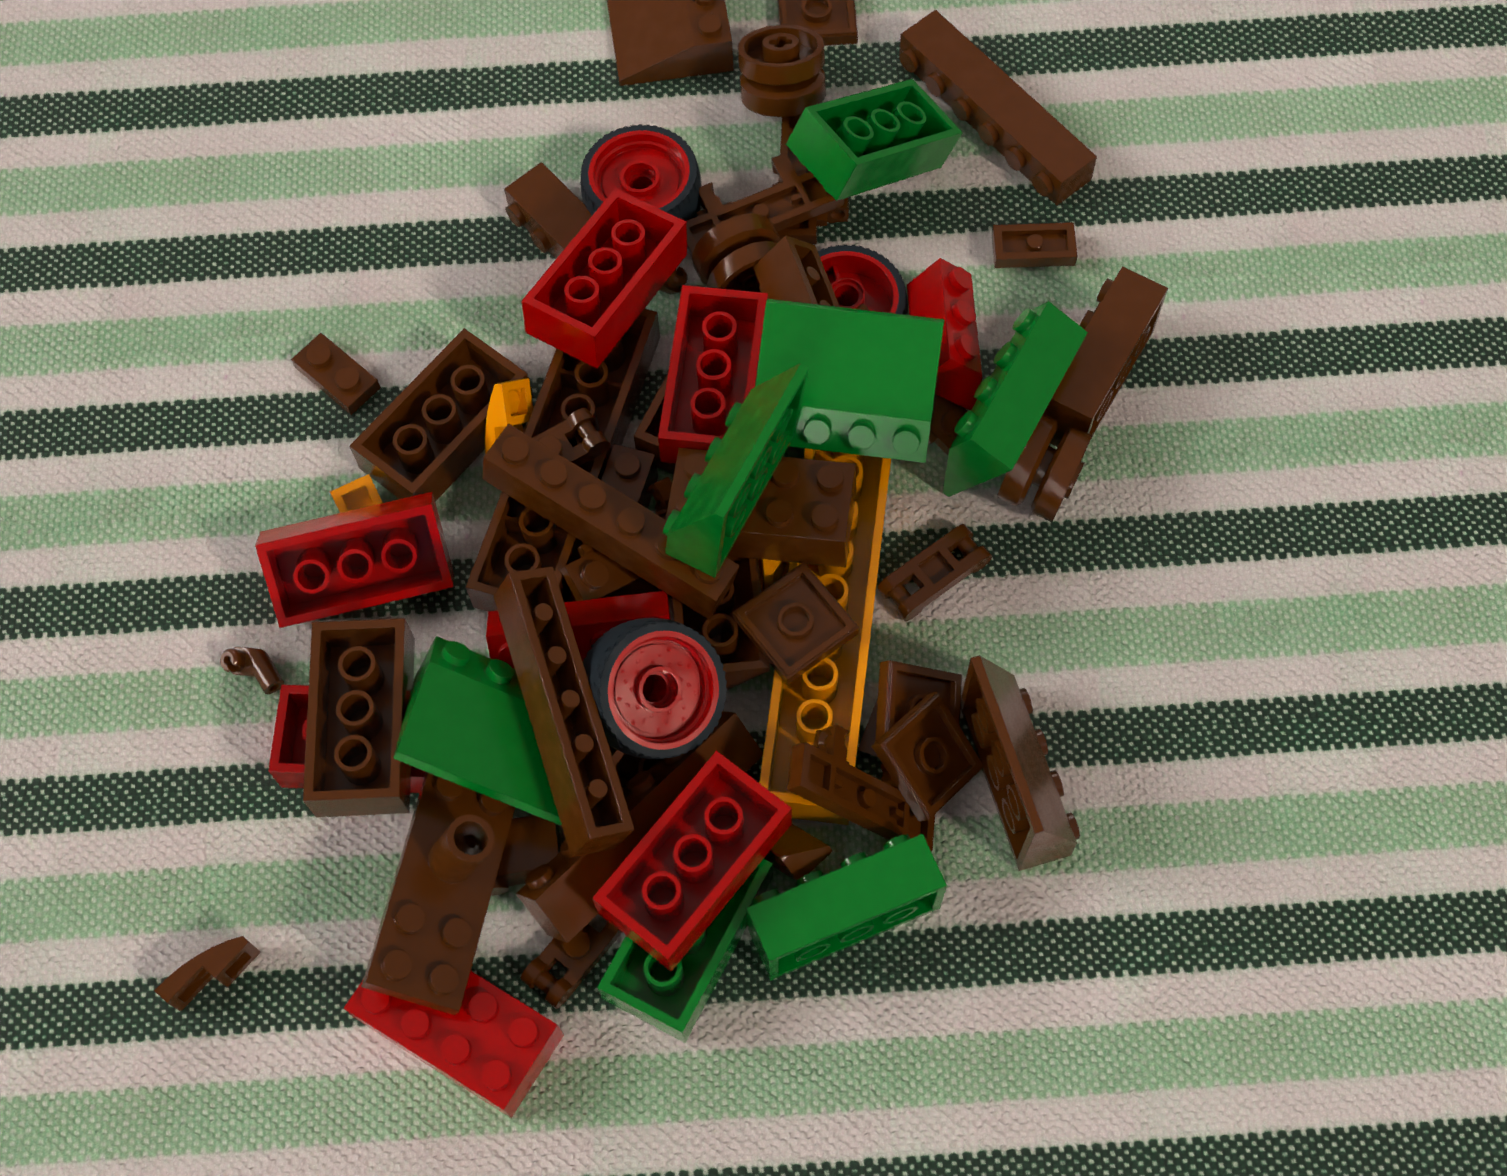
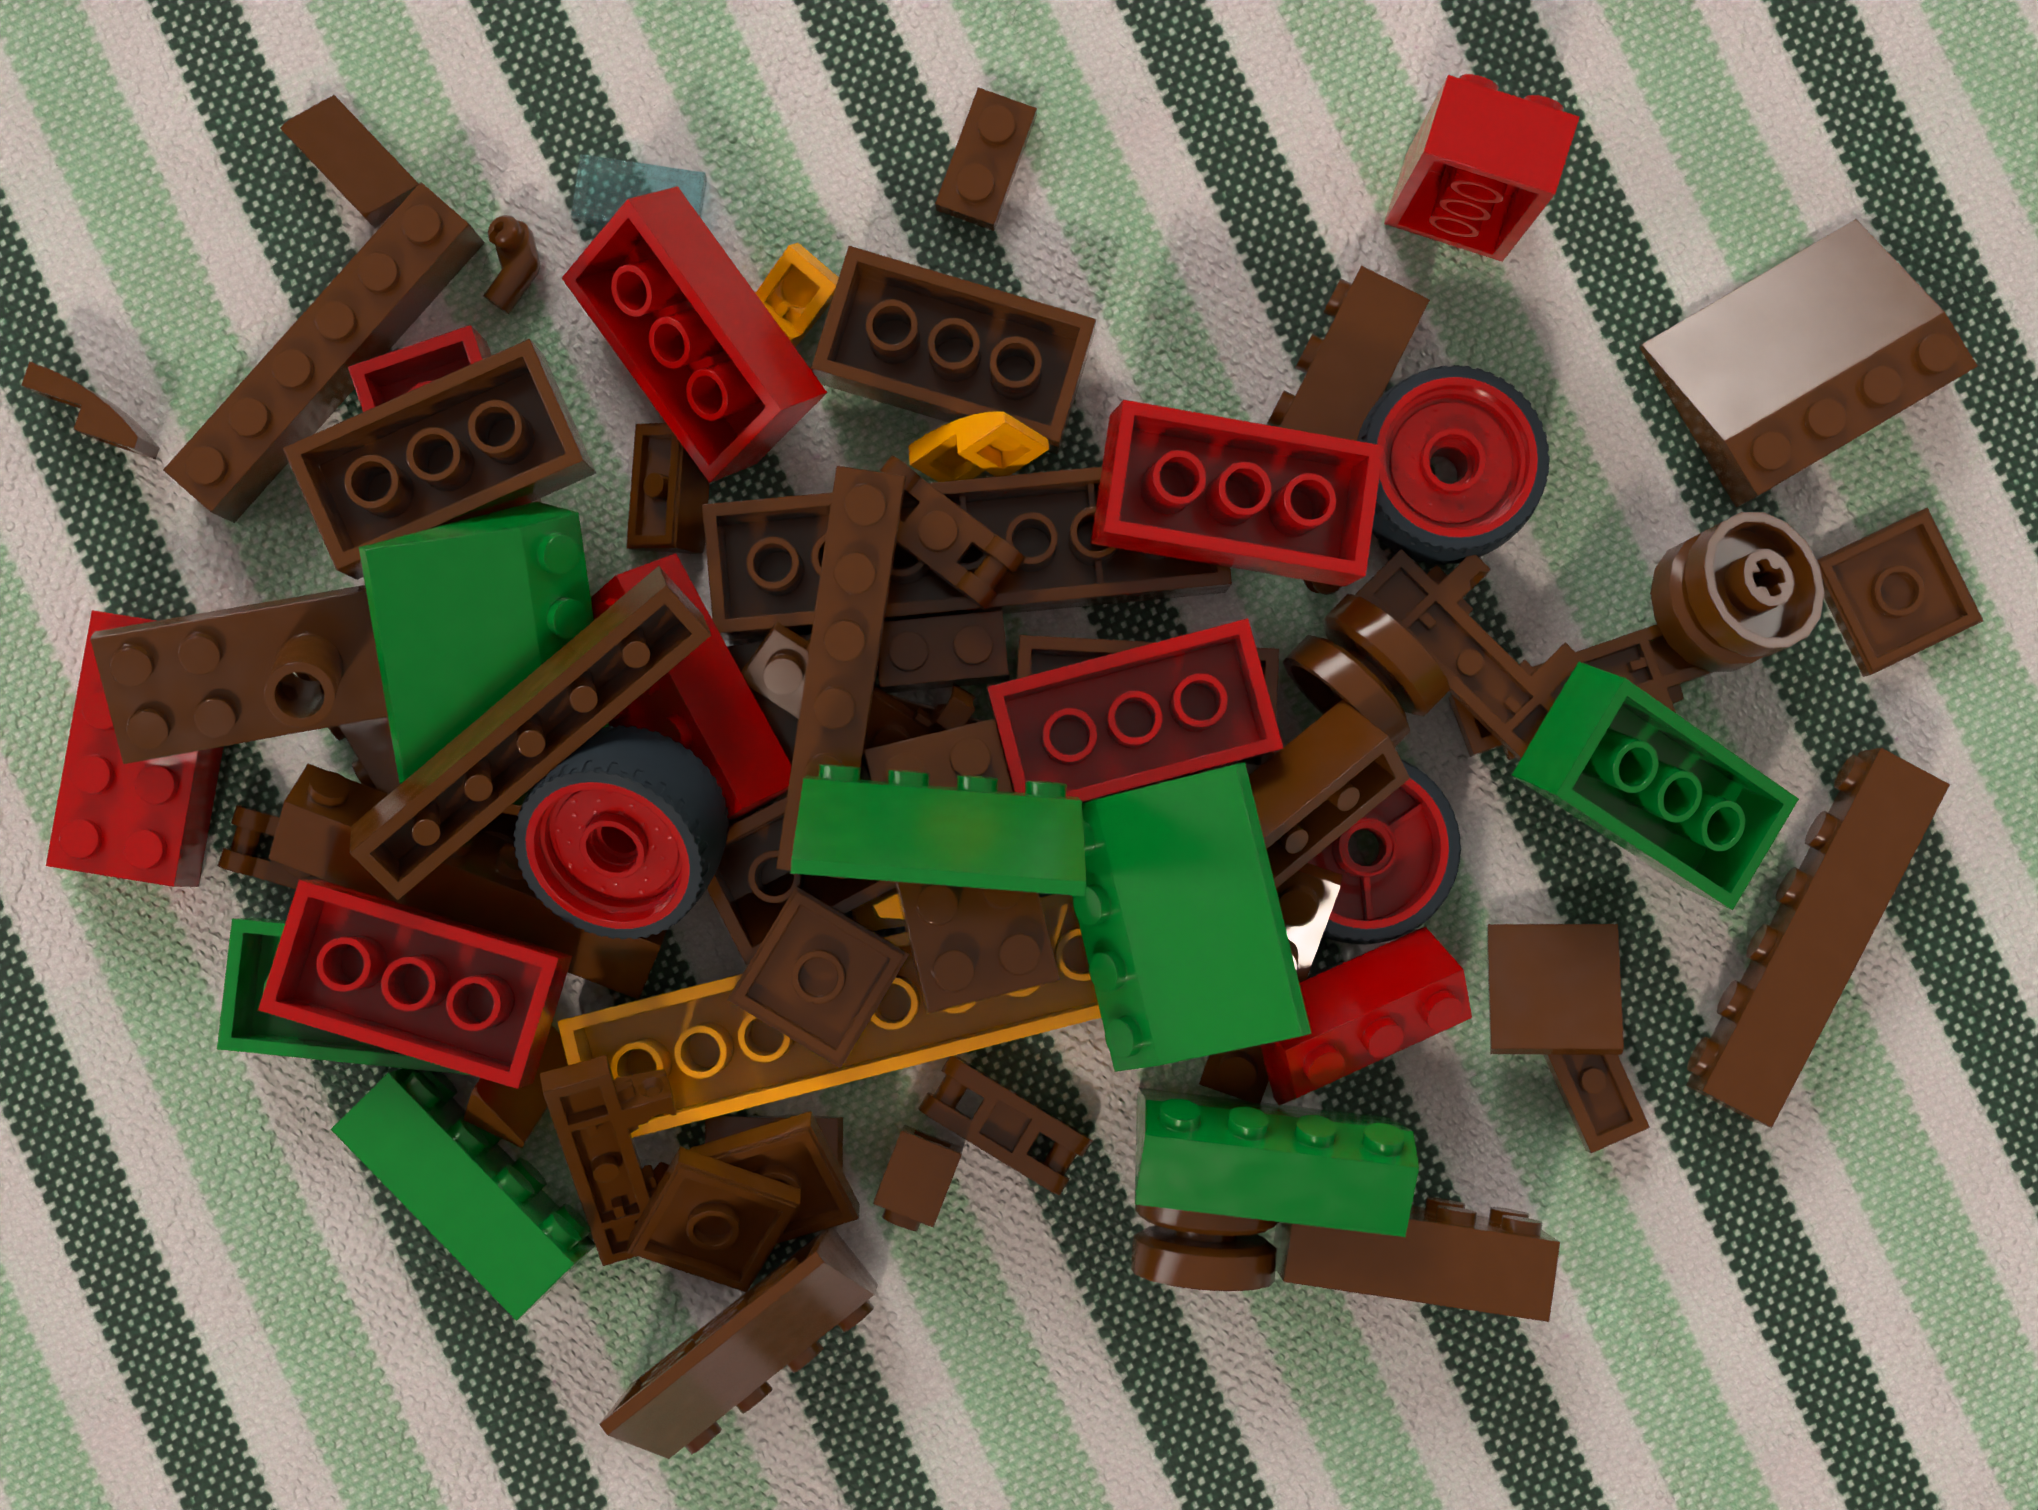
camera: 65 degrees right, 20 degrees up
(134, 743) = (351, 159): none -> reddish brown slope
(242, 587) = (608, 183): none -> clear light blue tile
(251, 801) = (308, 367): none -> reddish brown brick
(434, 617) = (665, 494): none -> reddish brown slope
(481, 95) = (1481, 166): none -> red brick
(948, 631) = (917, 1179): none -> reddish brown brick
(975, 238) = (1554, 989): none -> reddish brown tile

